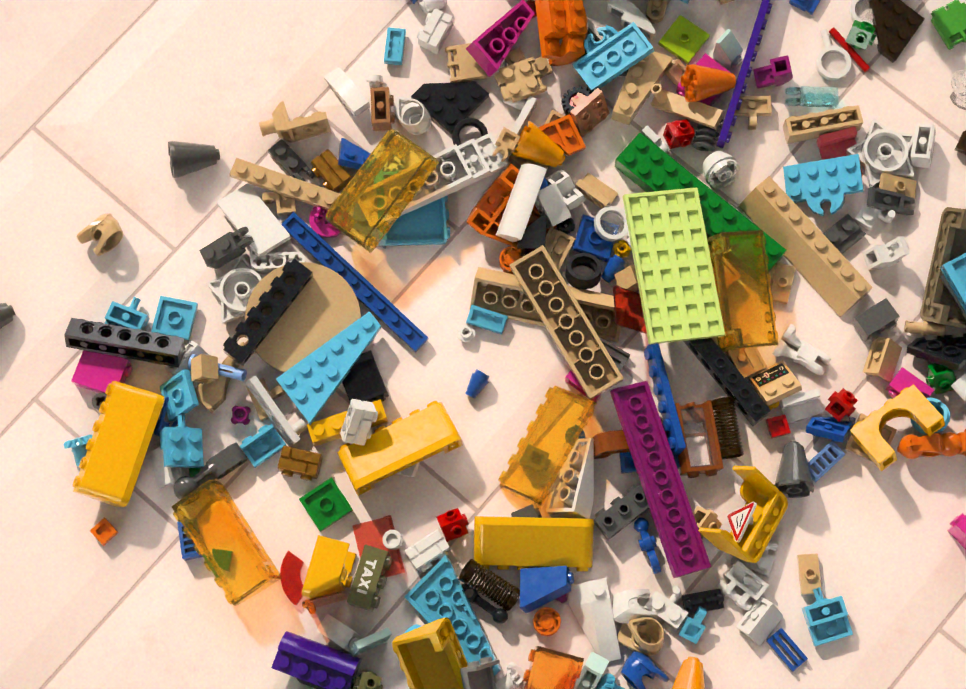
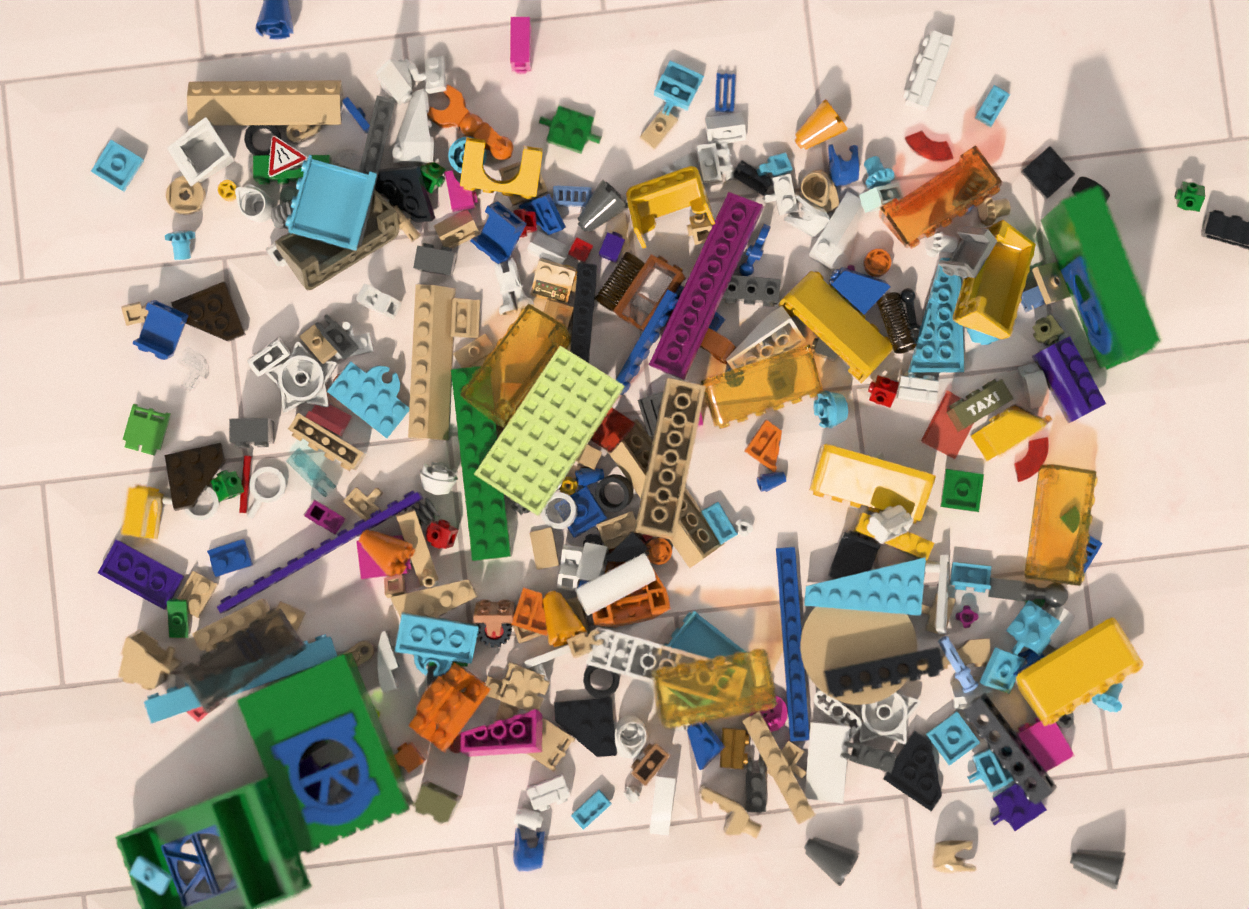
camera: 140 degrees left, 10 degrees up
(84, 307) = (1016, 807): none -> dark purple plate
(104, 531) = (1142, 617): orange plate -> none
(181, 271) = (916, 772): none -> black plate
(204, 368) = (968, 670): tan panel -> none
(299, 463) = (954, 538): pearl gold brick -> none
(370, 642) = (1017, 359): light aqua tile -> none
(392, 539) = (935, 420): white tile -> none
(480, 475) = (831, 409): none -> medium azure cone
(504, 405) = (765, 445): none -> orange wing
(652, 136) = (464, 551): white plate -> none
(684, 39) = (362, 609): lime plate -> none
(728, 50) = (340, 565): light aqua slope -> none
(740, 519) = (675, 206): piece -> none
(757, 449) = (612, 246): none -> dark purple brick
(812, 300) = (465, 318): none -> tan plate
(844, 233) = (393, 346): dark grey plate -> none
(848, 380) = (499, 233): none -> blue panel
(874, 511) = (570, 129): none -> green plate
(881, 83) = (251, 431): none -> dark grey brick

